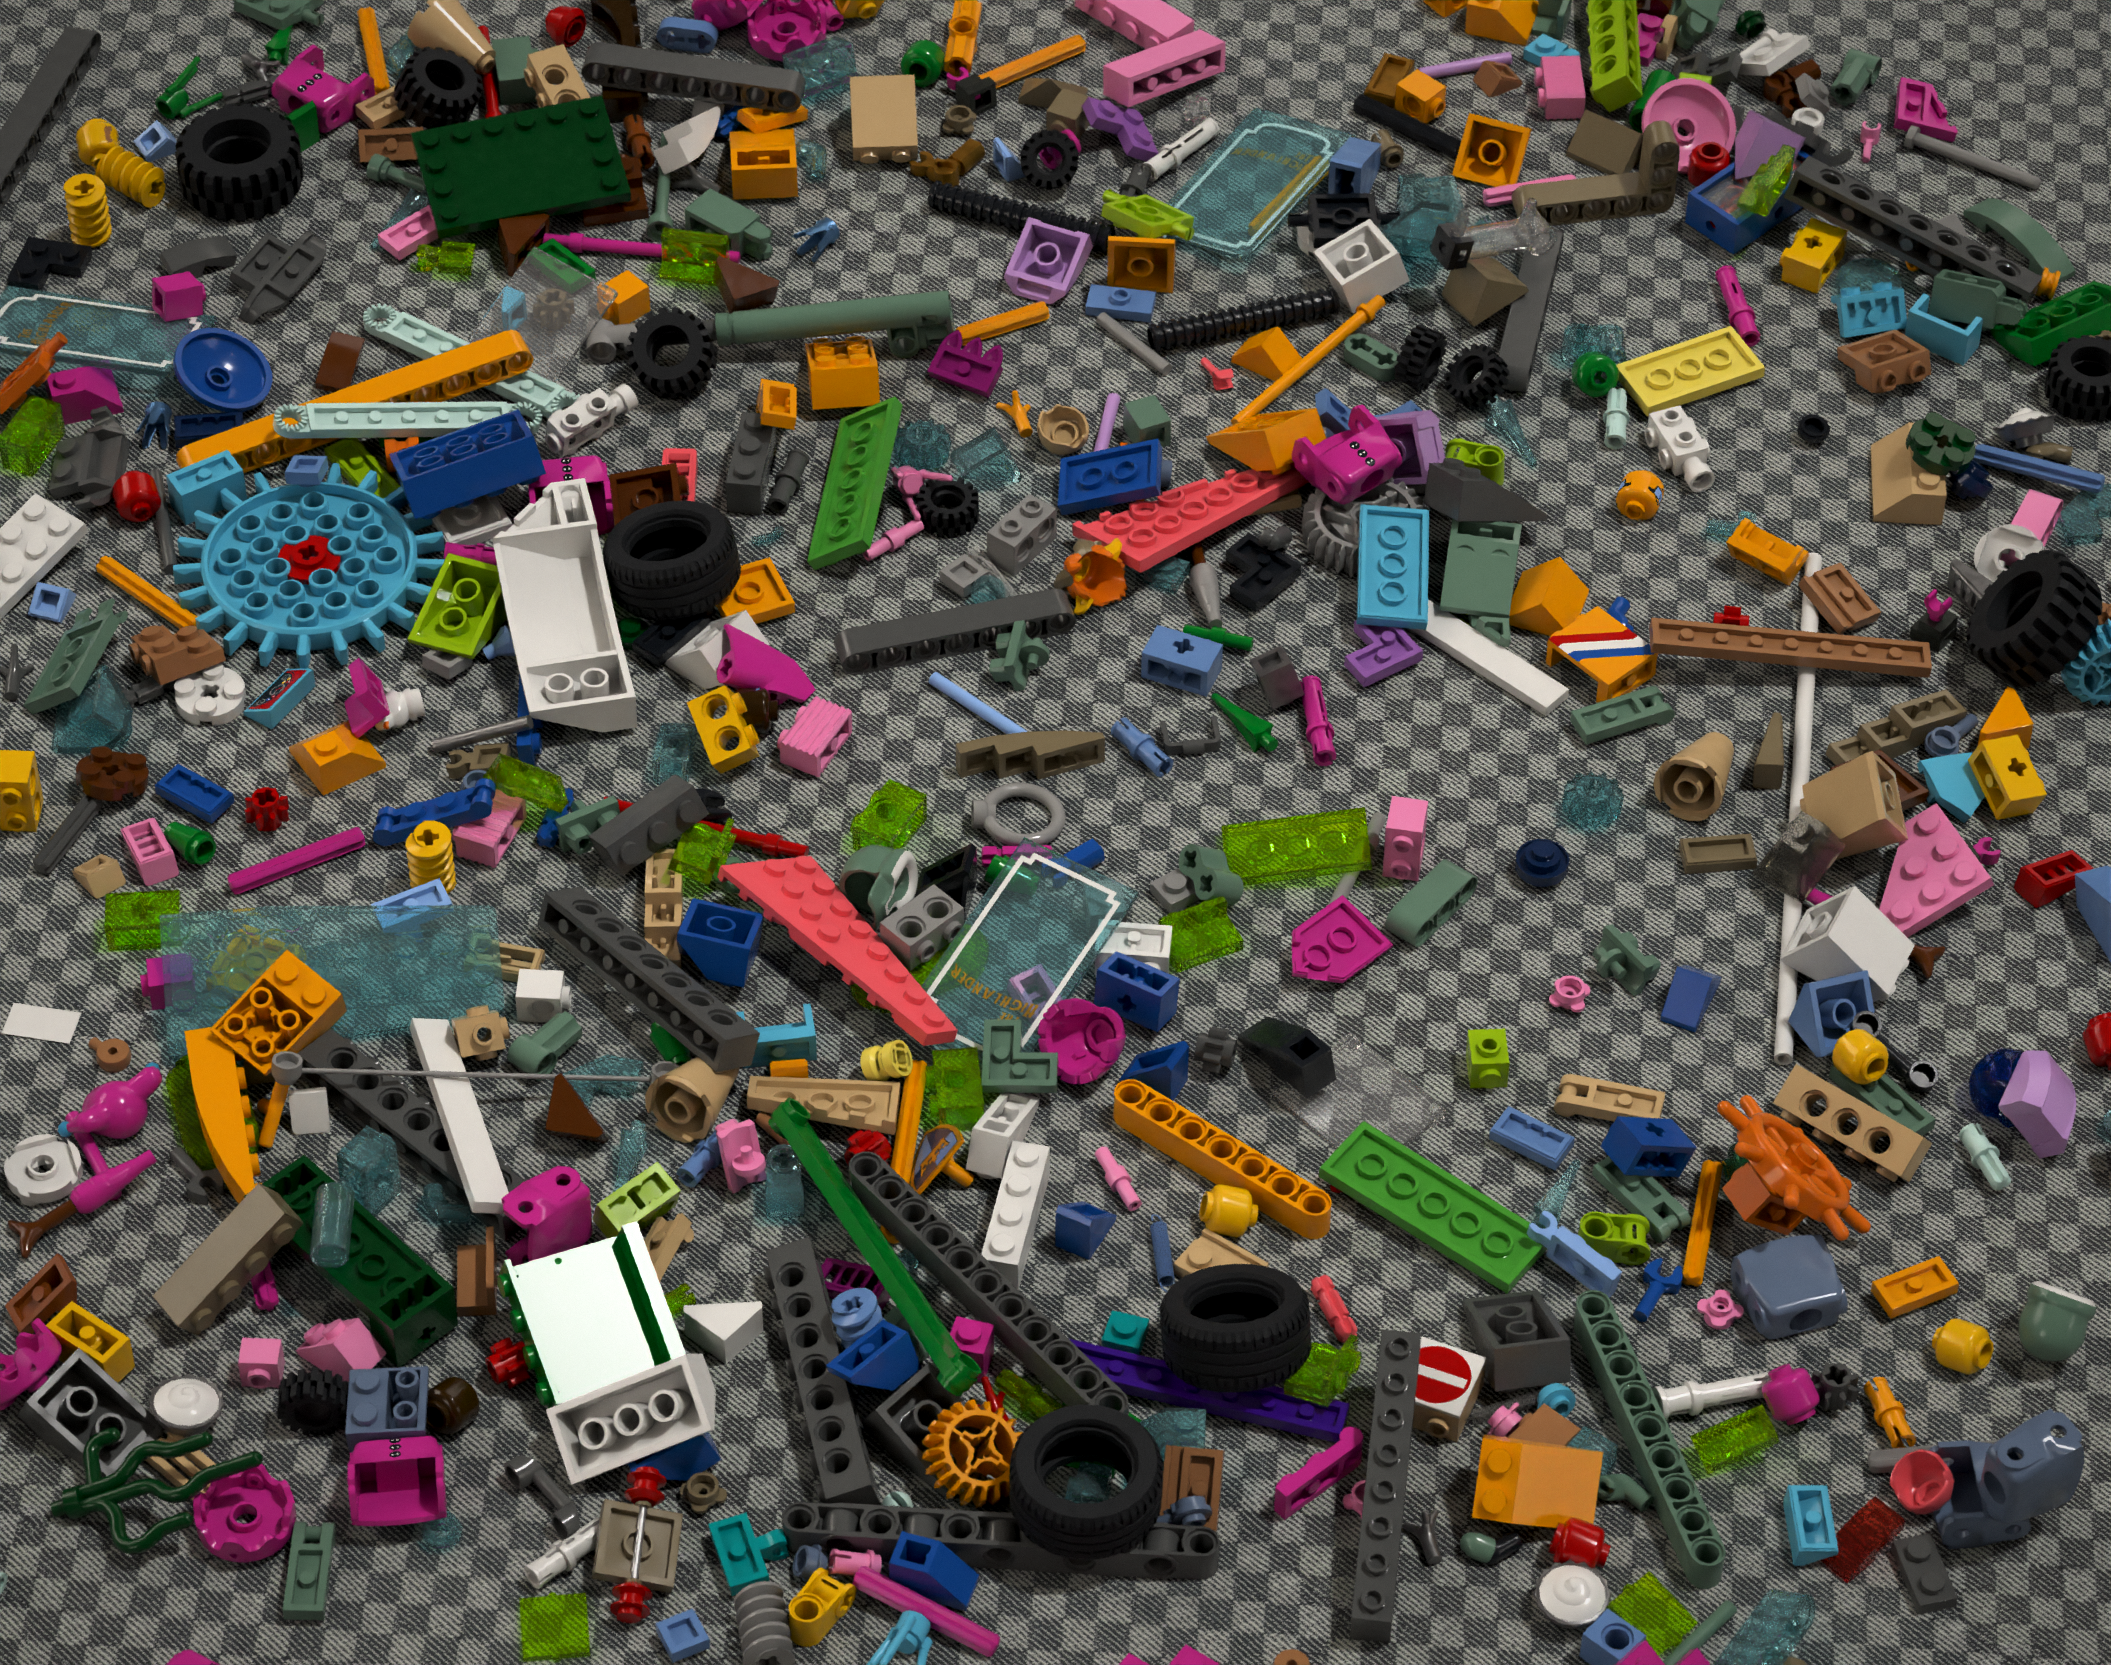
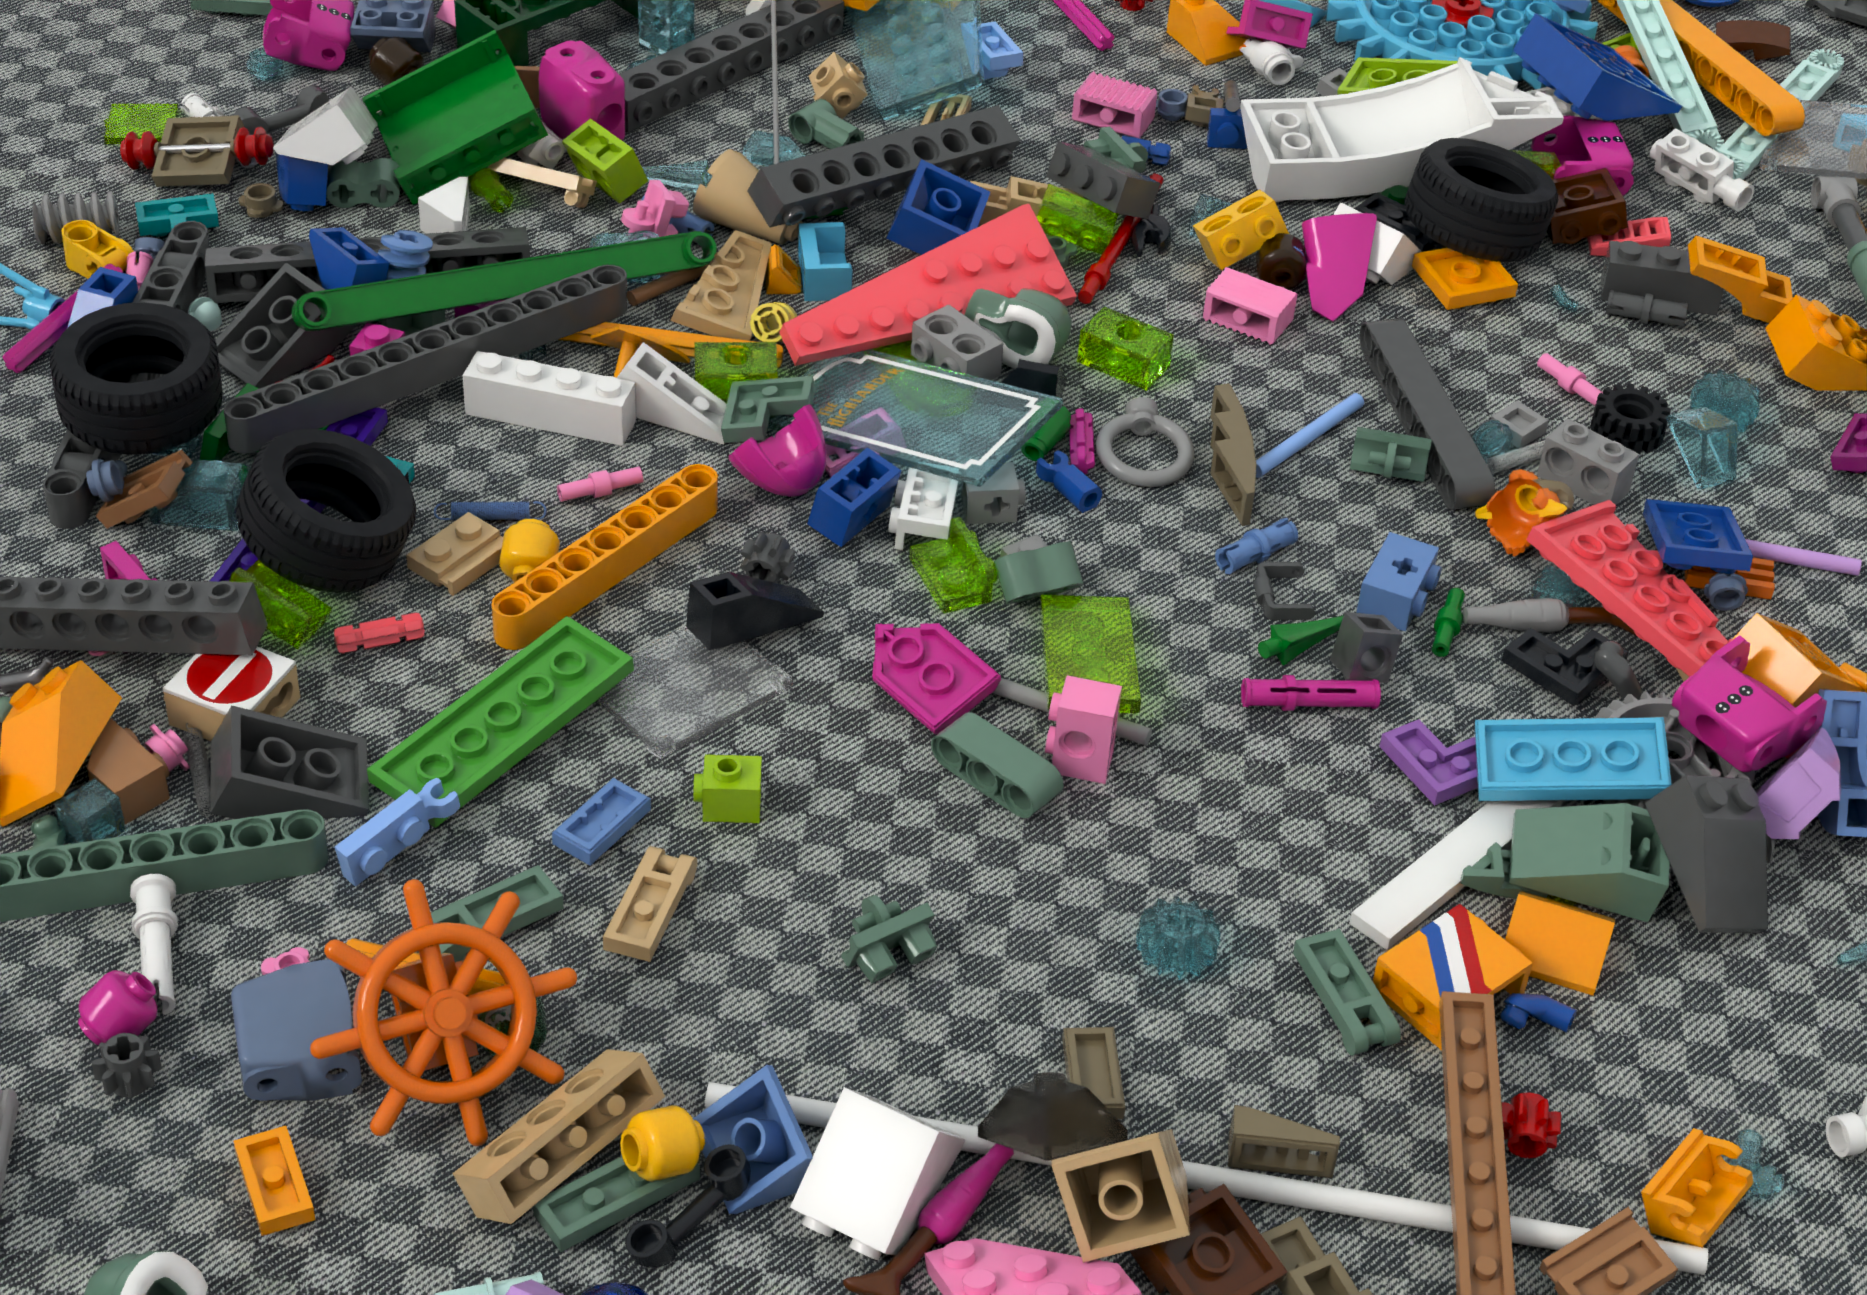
camera: 90 degrees right, 5 degrees down
(431, 855) = (1053, 57): yellow piece -> none
(450, 809) = (1119, 62): blue plate -> none
(460, 1116) = (711, 58): white tile -> none
(527, 782) = (1151, 105): clear neon green bracket -> none
(541, 995) = (888, 116): white brick -> none
(570, 1116) = (731, 128): reddish brown slope -> none
(663, 329) = (1809, 216): black tyre -> none
(682, 1635) = (95, 178): medium blue plate -> none
(855, 483) = (1657, 346): bright green plate -> none
(870, 1142) = (653, 306): red gear -> none
(908, 482) = (1656, 381): bright pink plant -> none
(947, 1439) = (247, 336): light orange gear -> none
(1018, 414) = (1803, 487): light orange bar -> none
(1062, 429) = (1775, 505): tan hair -> none
(1081, 1228) = (531, 445): blue slope -> none
(1147, 420) = (1802, 574): sand green panel -> none
(1161, 1069) = (738, 519): blue slope -> none
(1486, 458) = (1809, 884): lime piece -> none
(1542, 862) = (1066, 877): dark blue plate -> none
(1555, 1198) = (490, 830): clear light blue piece -> none
(1558, 1398) = (183, 797): medium azure plate -> none
(1569, 993) = (841, 884): bright pink plate -> none
(1614, 1236) = (423, 858): lime piece -> none
(1640, 495) = (1790, 1057): light orange head -> none
(1648, 1146) = (538, 928): blue brick -> none
(1657, 1286) = (348, 921): blue bar -> none
(1689, 997) = (834, 1007): blue slope -> none
(1696, 777) = (1227, 1048): tan cone -> none
(1734, 1439) = (69, 953): clear neon green plate -> none
(1889, 1413) = (69, 1122): light orange pin -> none
(1962, 1346) = (151, 1213): yellow head -> none

